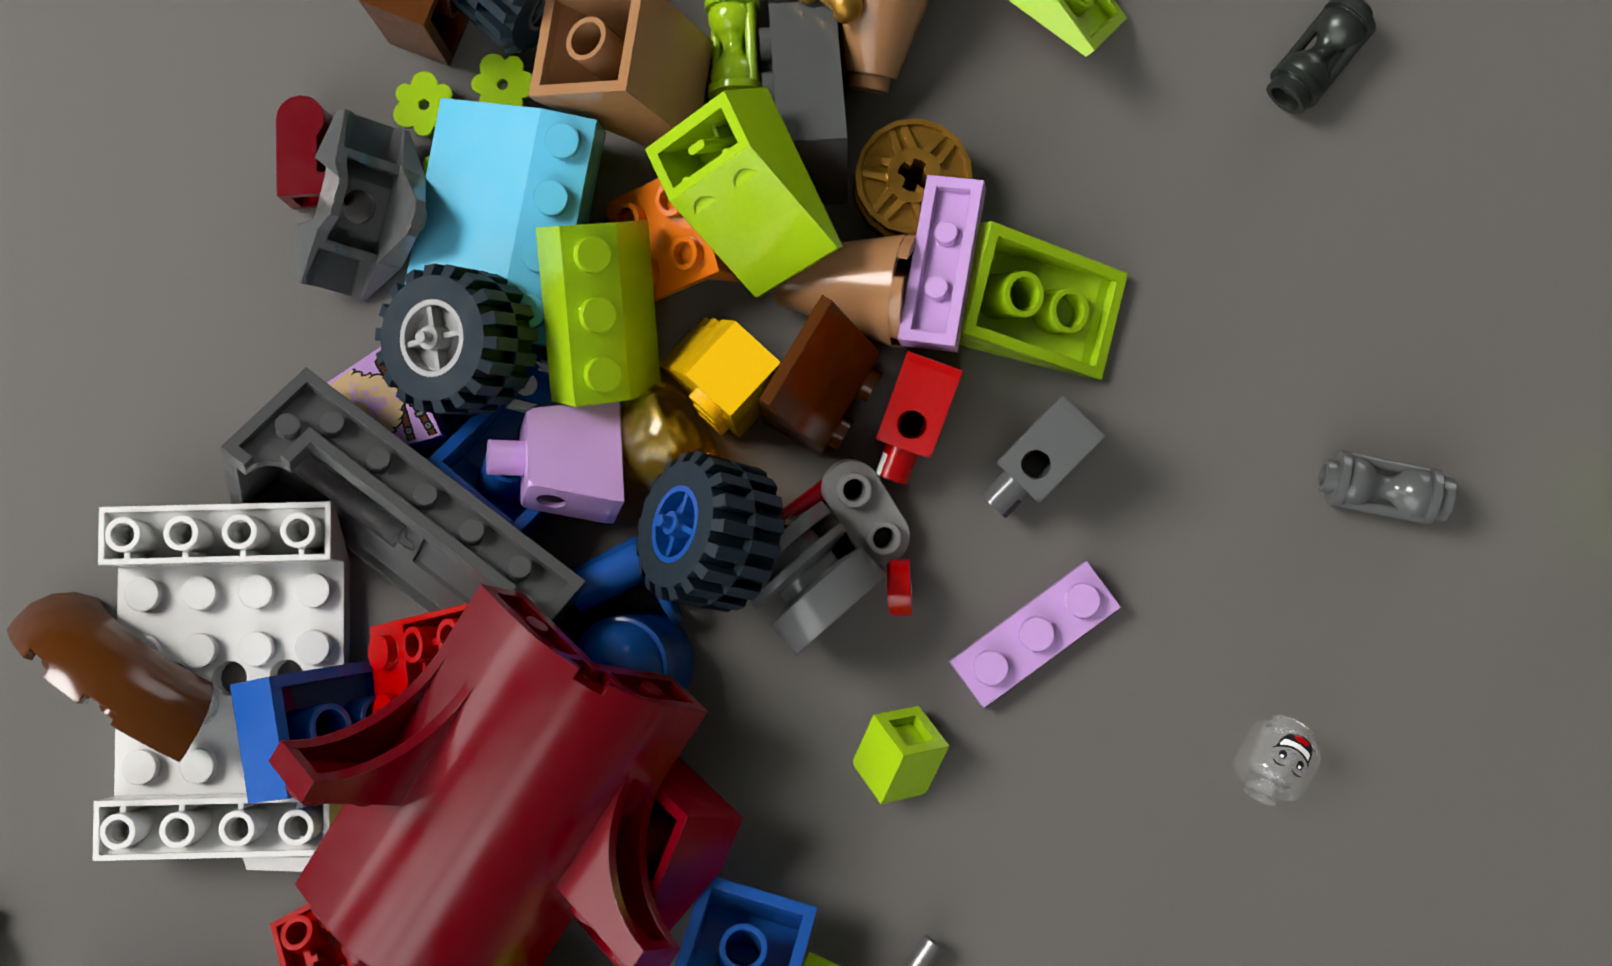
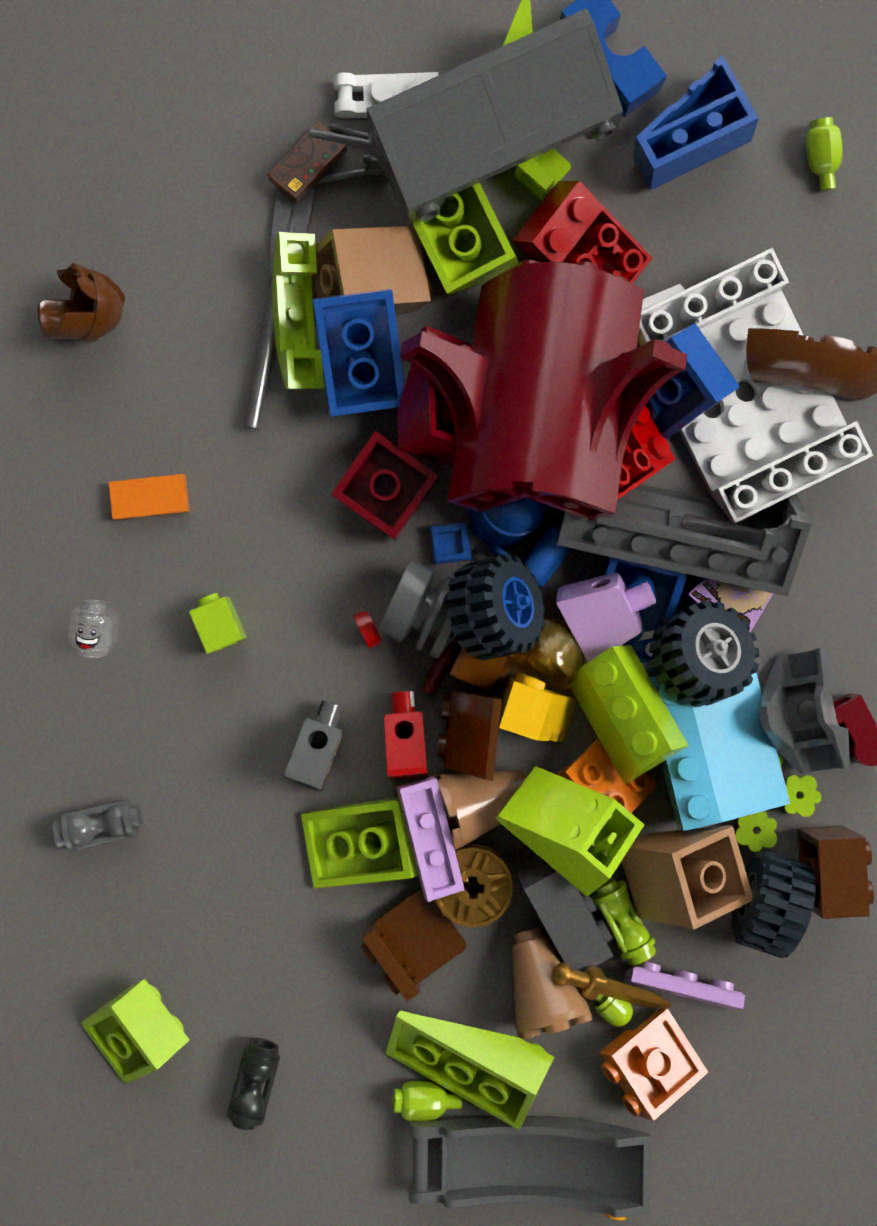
camera: 155 degrees right, 5 degrees up
(732, 653) = (450, 543): none -> blue tile
(776, 457) = (479, 672): none -> reddish brown slope
(785, 774) = (385, 486): none -> dark red brick
(866, 512) = (408, 665): light grey plate -> none
(900, 754) = (322, 529): lime panel -> none
(1030, 141) = (411, 943): none -> reddish brown bracket
(1034, 634) = (273, 638): lavender plate -> none
(1102, 690) = (217, 623): none -> lime brick
(1120, 910) = (149, 497): none -> orange tile
(1450, 190) = (136, 1031): none -> lime slope

